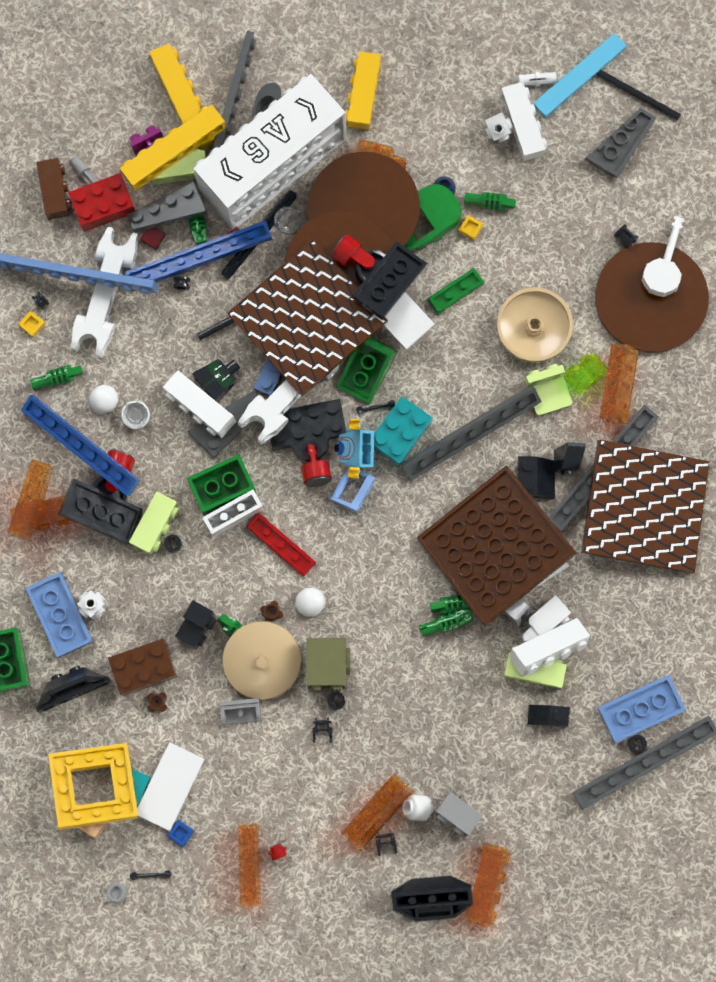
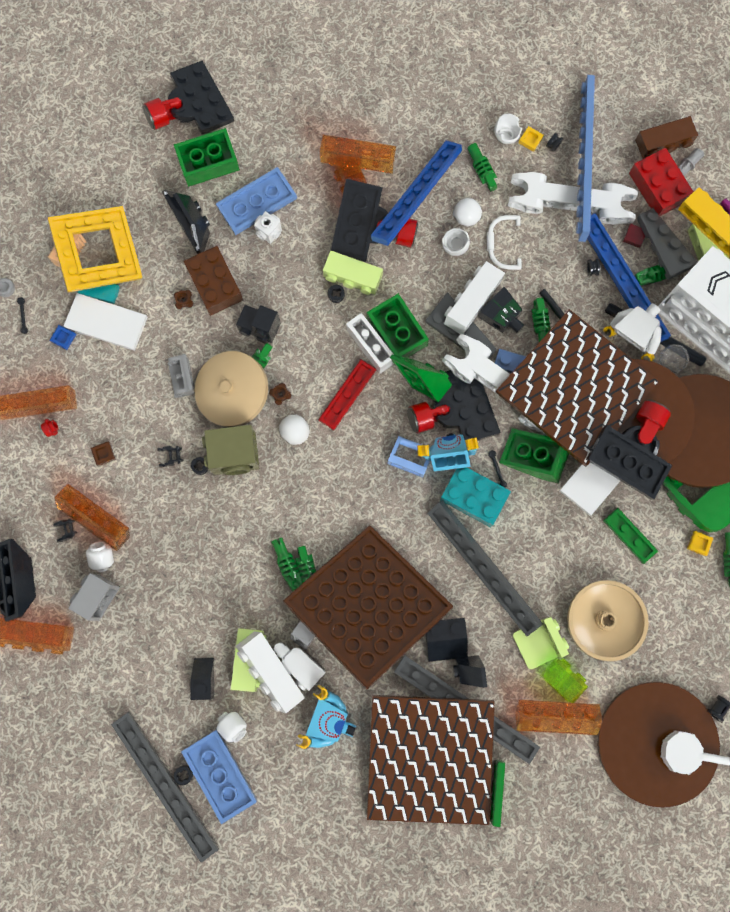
camera: 80 degrees right, 0 degrees up
(20, 345) = (507, 129): none -> white hair
(138, 380) = (490, 242): none -> white piece
(230, 342) = (540, 318): none -> green hinge
(256, 249) = (638, 328): none -> white torso
(277, 464) = (423, 377): none -> green slope
(310, 799) = (103, 453): none -> reddish brown tile
(597, 692) = (231, 727): none -> white head
(601, 599) = (327, 721): none -> medium azure torso
(681, 449) = (497, 793): none -> green tile

